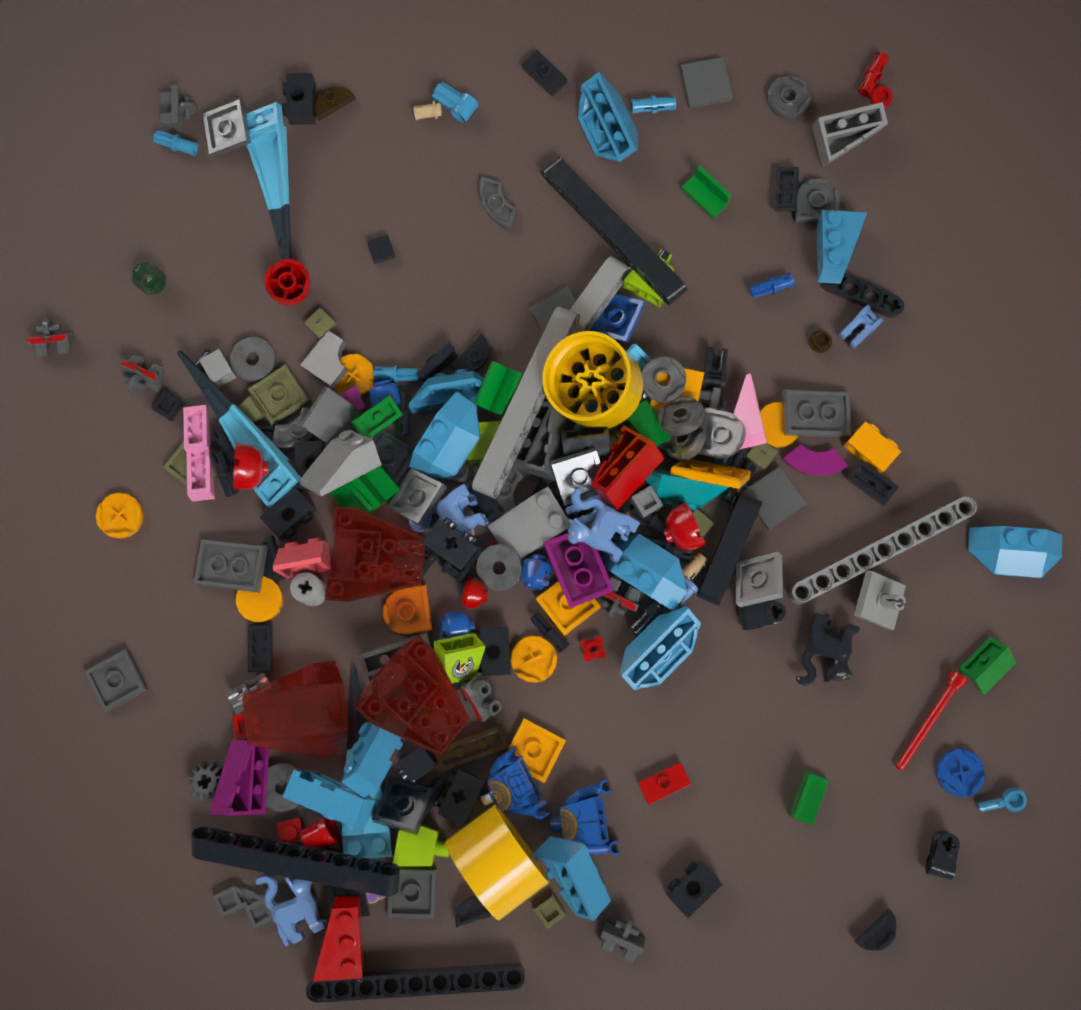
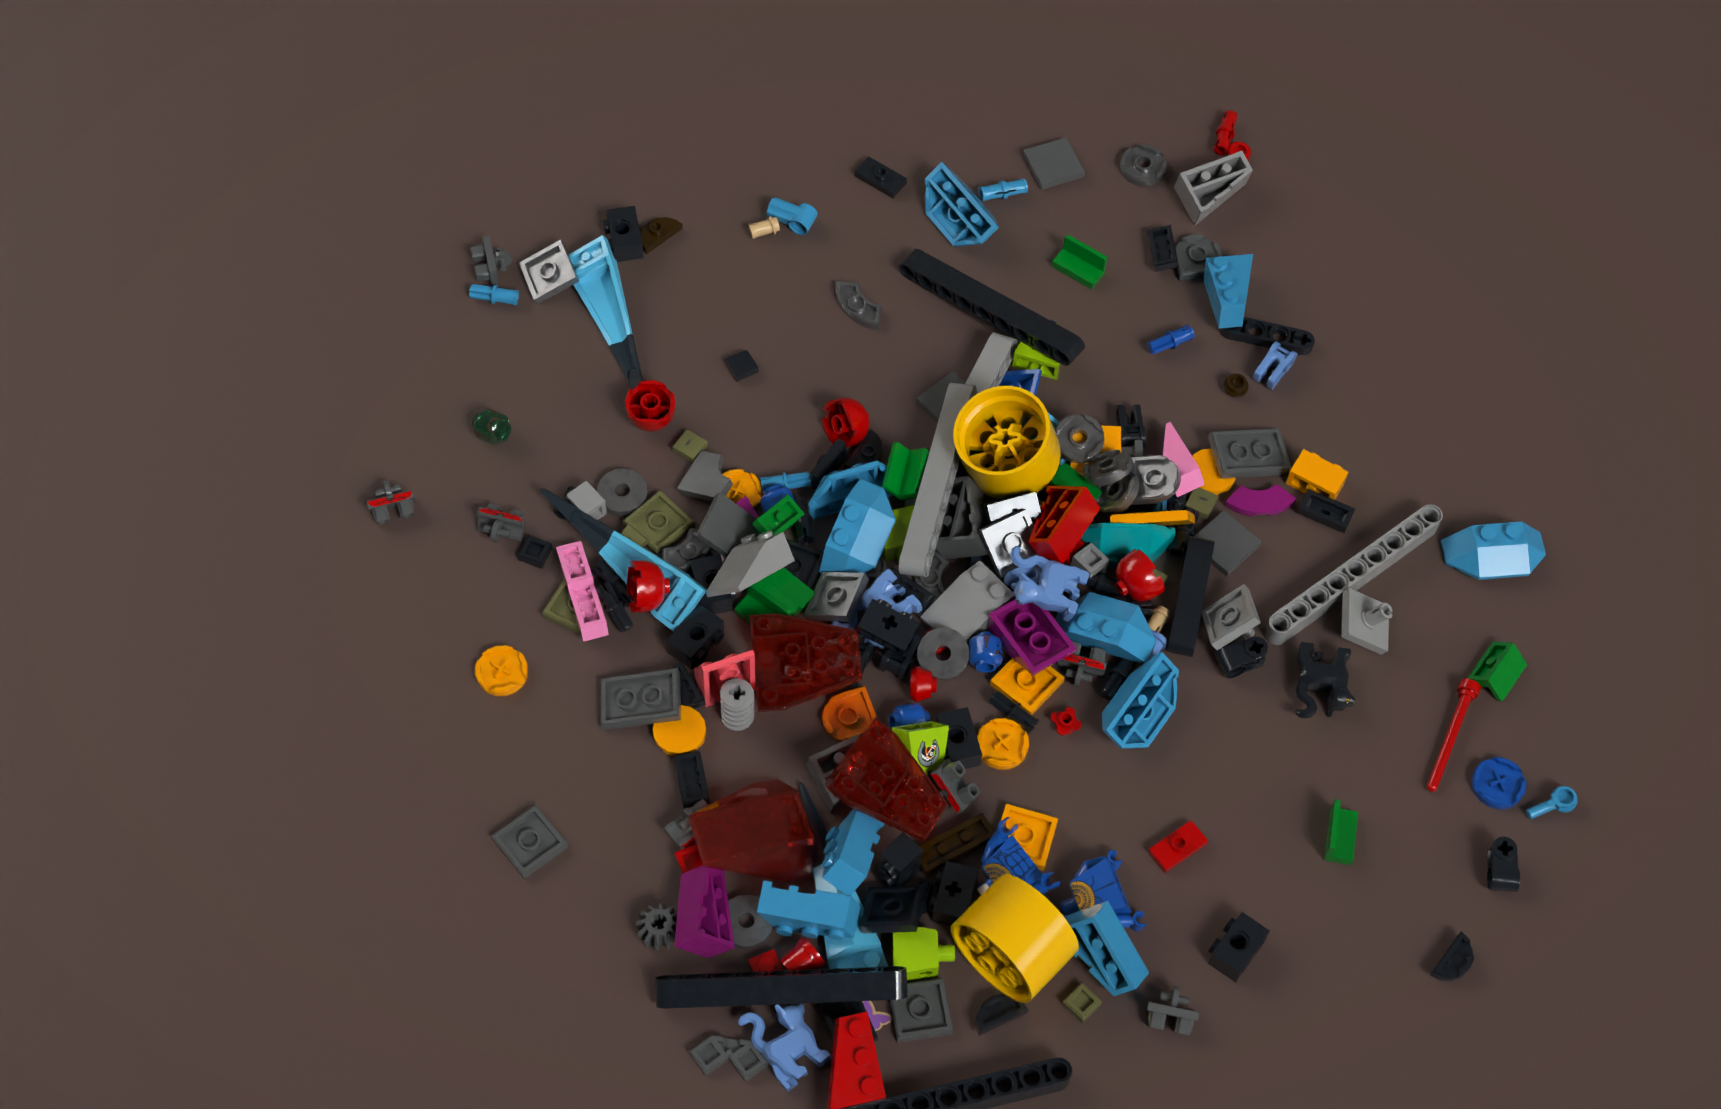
camera: 15 degrees left, 20 degrees down
(460, 324) = (846, 420): none -> red cylinder

